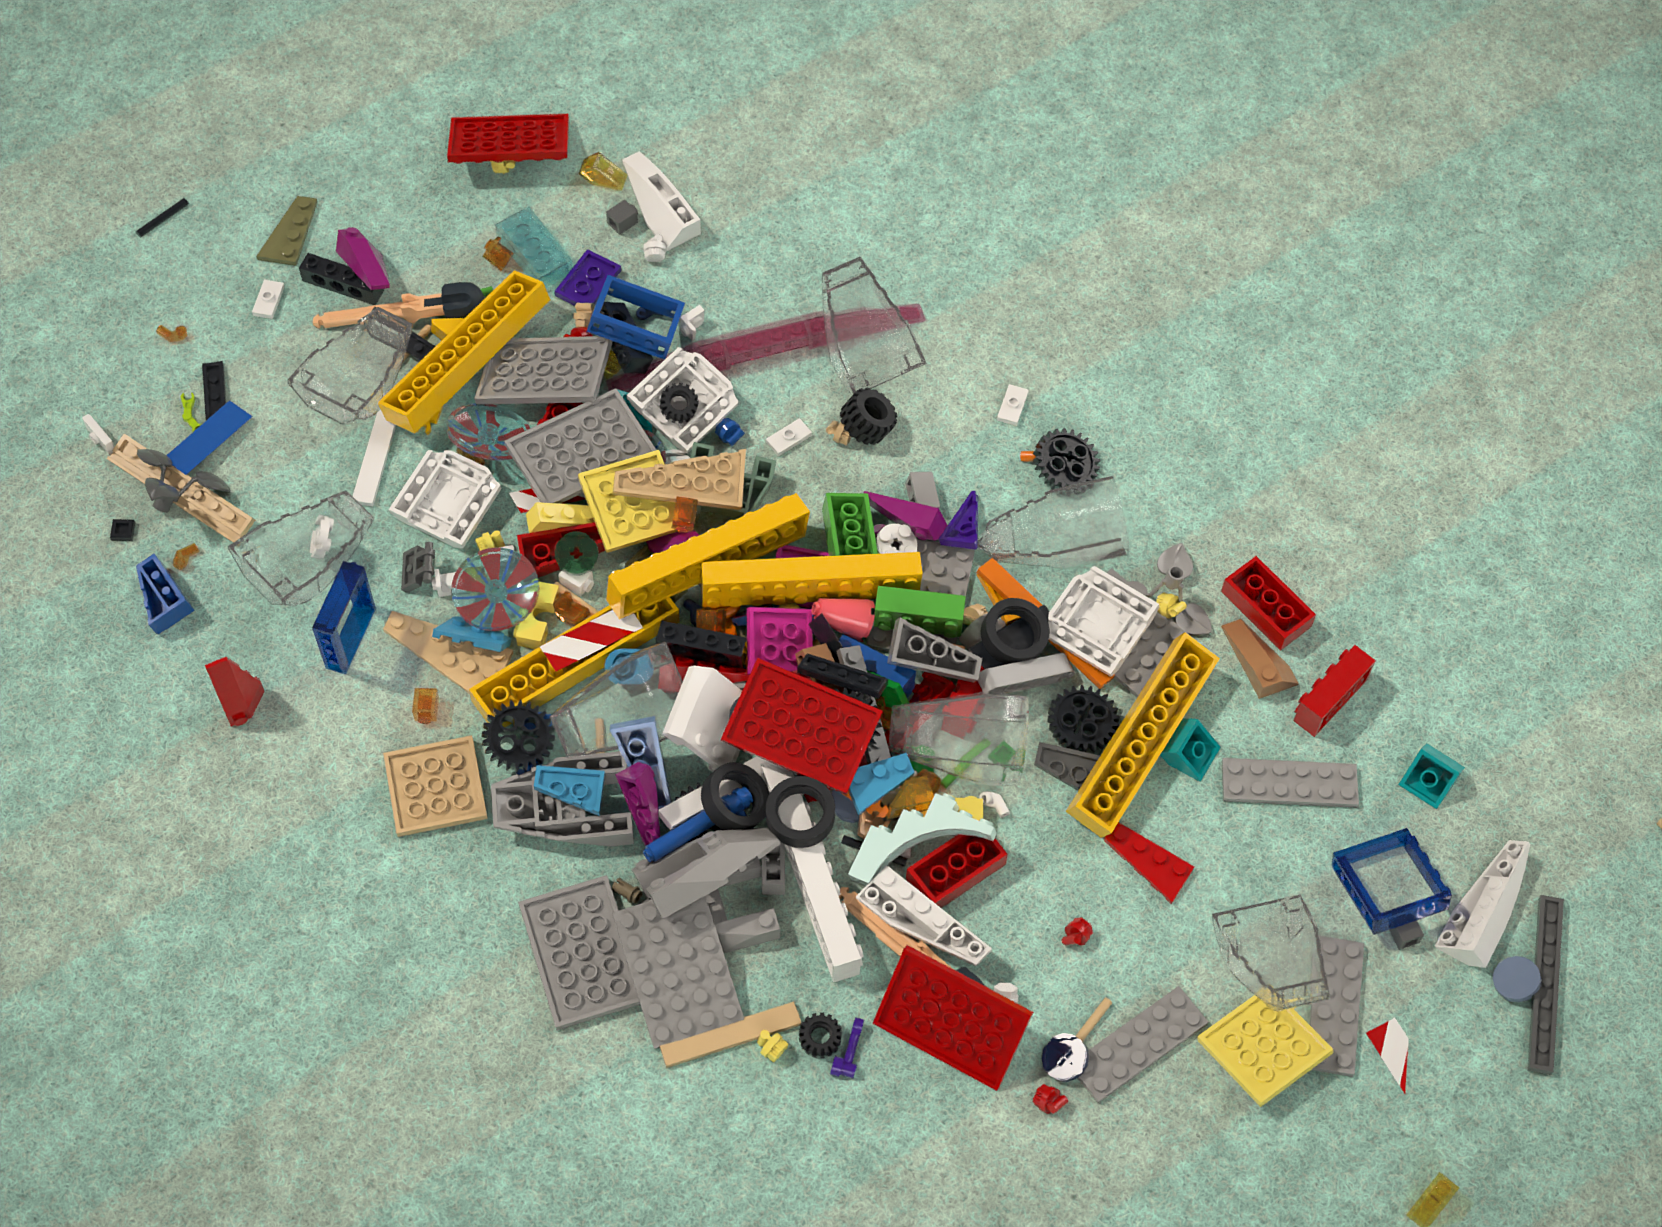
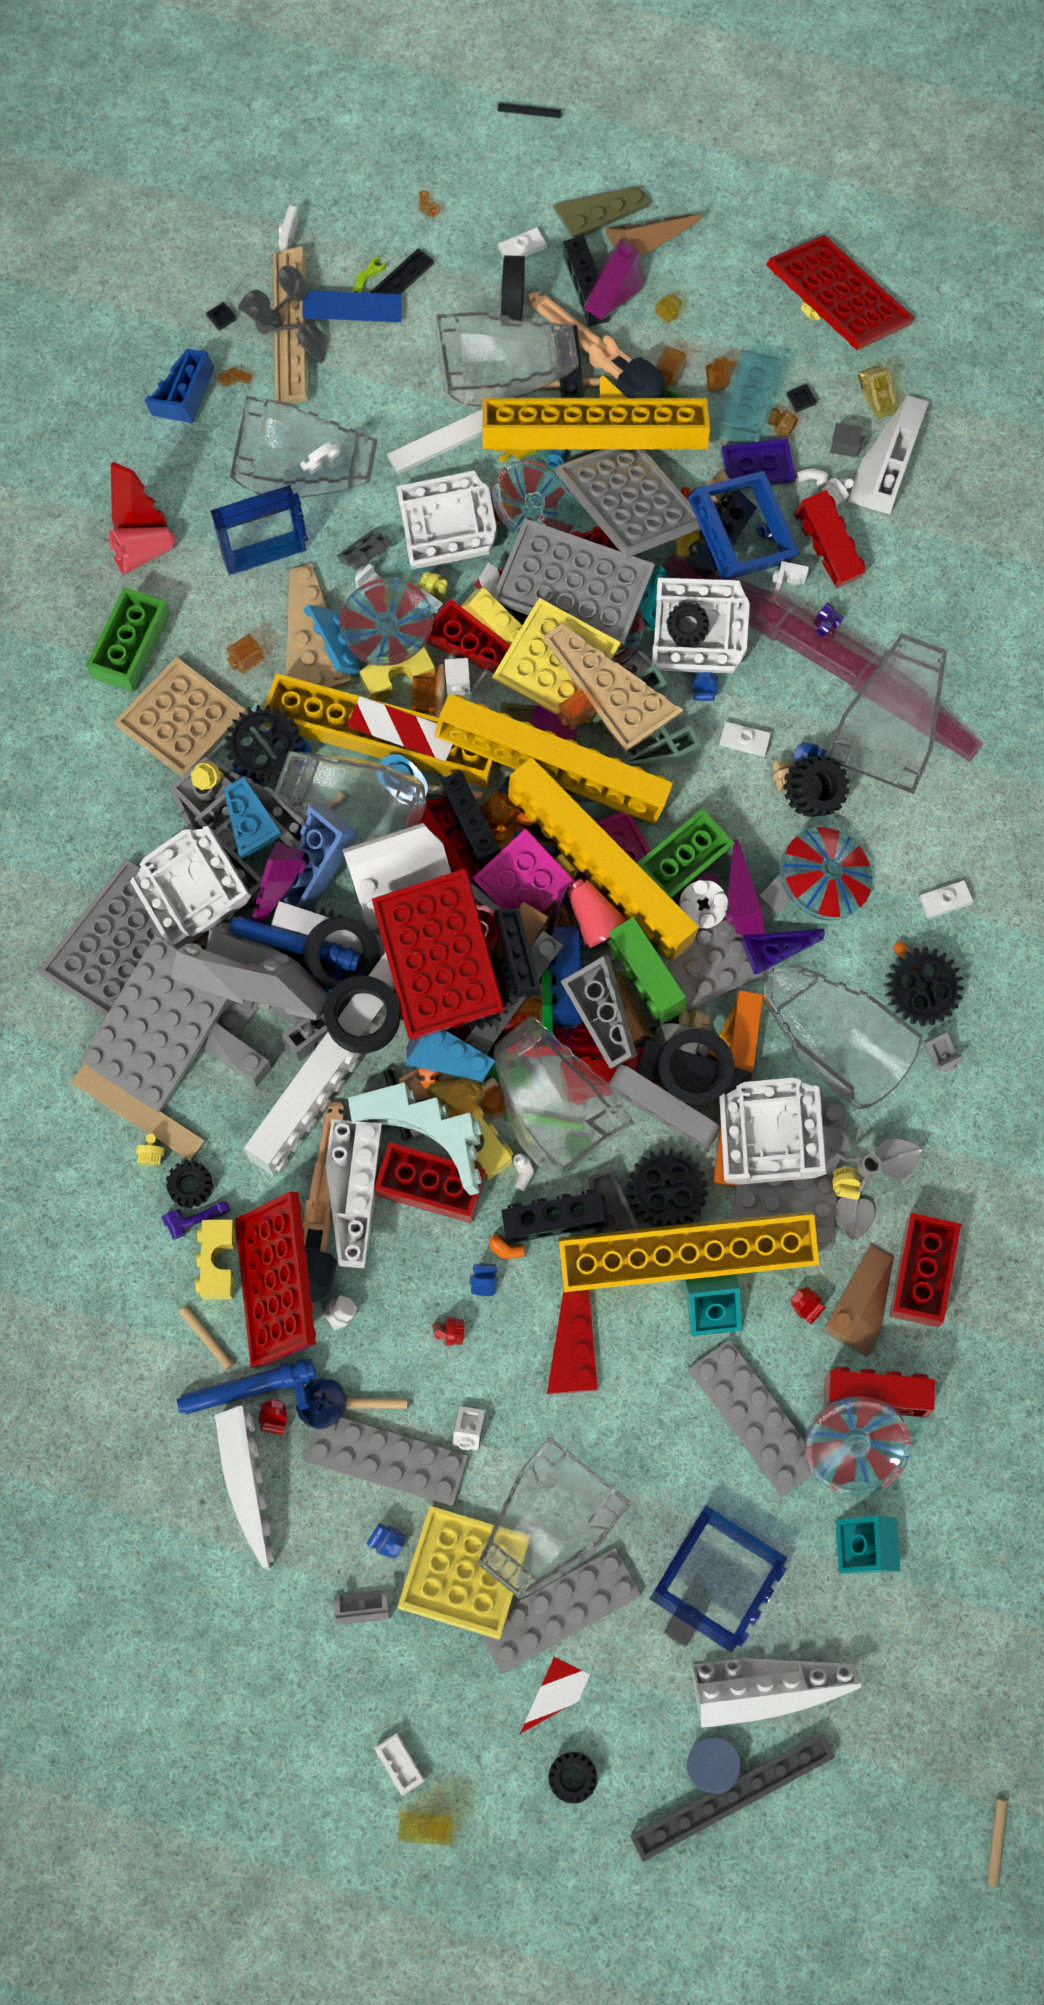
camera: 55 degrees right, 10 degrees up
(265, 717) = (139, 545): none -> coral cone
(307, 322) = (513, 286): none -> black tyre
(338, 775) = (128, 639): none -> bright green brick
(342, 215) = (653, 233): none -> medium nougat wedge
(413, 246) = (668, 307): none -> clear yellow piece
(460, 272) = (671, 364): none -> clear orange brick
(463, 397) = (556, 458): none -> dark azure pin
(511, 790) = (206, 775): none -> light yellow piece
(562, 221) = (801, 398): none -> black tile
(567, 562) = (470, 643): clear green plate -> none
(572, 243) = (782, 422): none -> clear orange piece
(587, 865) = (189, 886): none -> white wedge
(626, 255) = (812, 473): none -> white arm
(689, 278) = (830, 538): none -> red wedge
(742, 321) = (829, 618): none -> dark purple brick
(834, 406) = (807, 750): none -> blue piece
(910, 1069) = (214, 1237): none -> light yellow arch
(935, 458) = (826, 873): none -> dish
(949, 1107) = (207, 1339): none -> tan bar
(1024, 1069) = (285, 1376): none -> blue cylinder
(1042, 856) = (503, 1250): none -> orange arm
(1056, 884) = (483, 1279): none -> blue piece
(1058, 770) = (593, 1217): none -> black brick
(1079, 1149) = (243, 1478): none -> white wedge
(1126, 485) = (942, 1052): none -> light grey bracket
(1159, 970) = (468, 1428): none -> white bracket
(1202, 1083) = (386, 1541): none -> blue piece
(1236, 692) = (807, 1304): none -> red piece
(1238, 1135) = (361, 1607): none -> light grey hinge
(1362, 727) = (857, 1445): none -> clear light blue dish
(1372, 1189) = (399, 1764): none -> white plate
(1468, 1066) = (589, 1782): none -> black tyre

